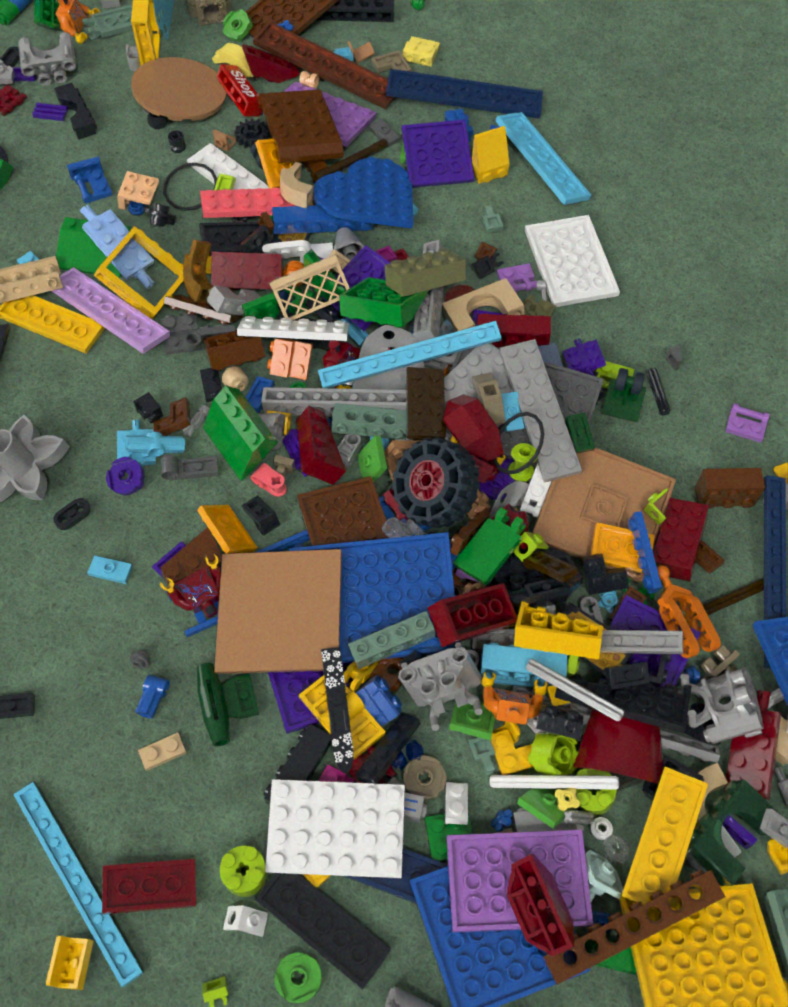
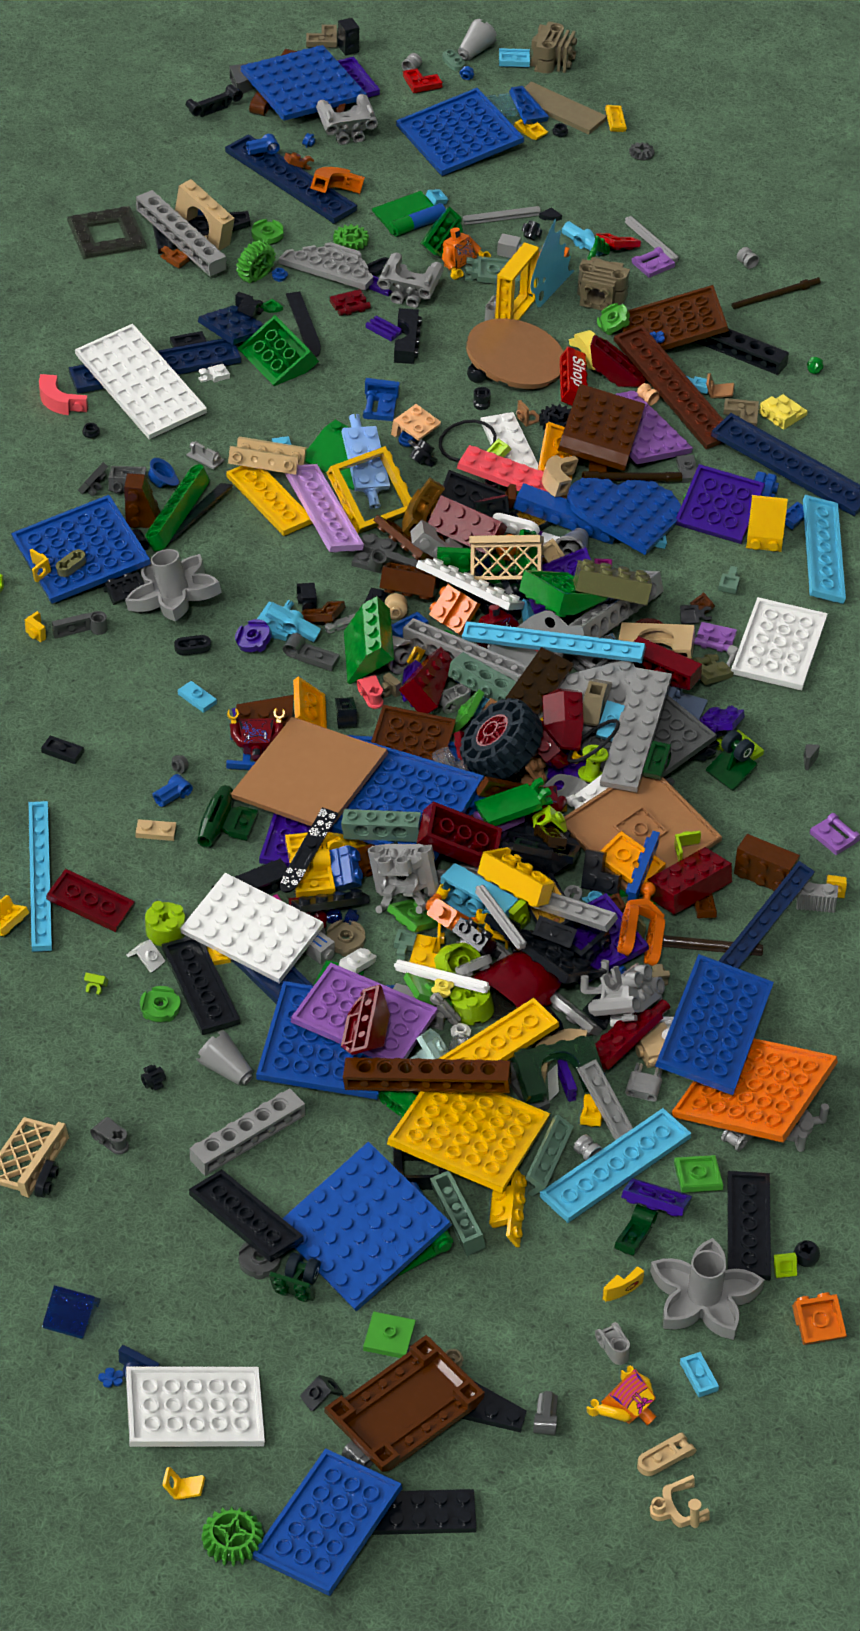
camera: 30 degrees right, 15 degrees down
(577, 755) = (480, 963): none -> light grey plate
(658, 391) = (772, 776): black axle -> none

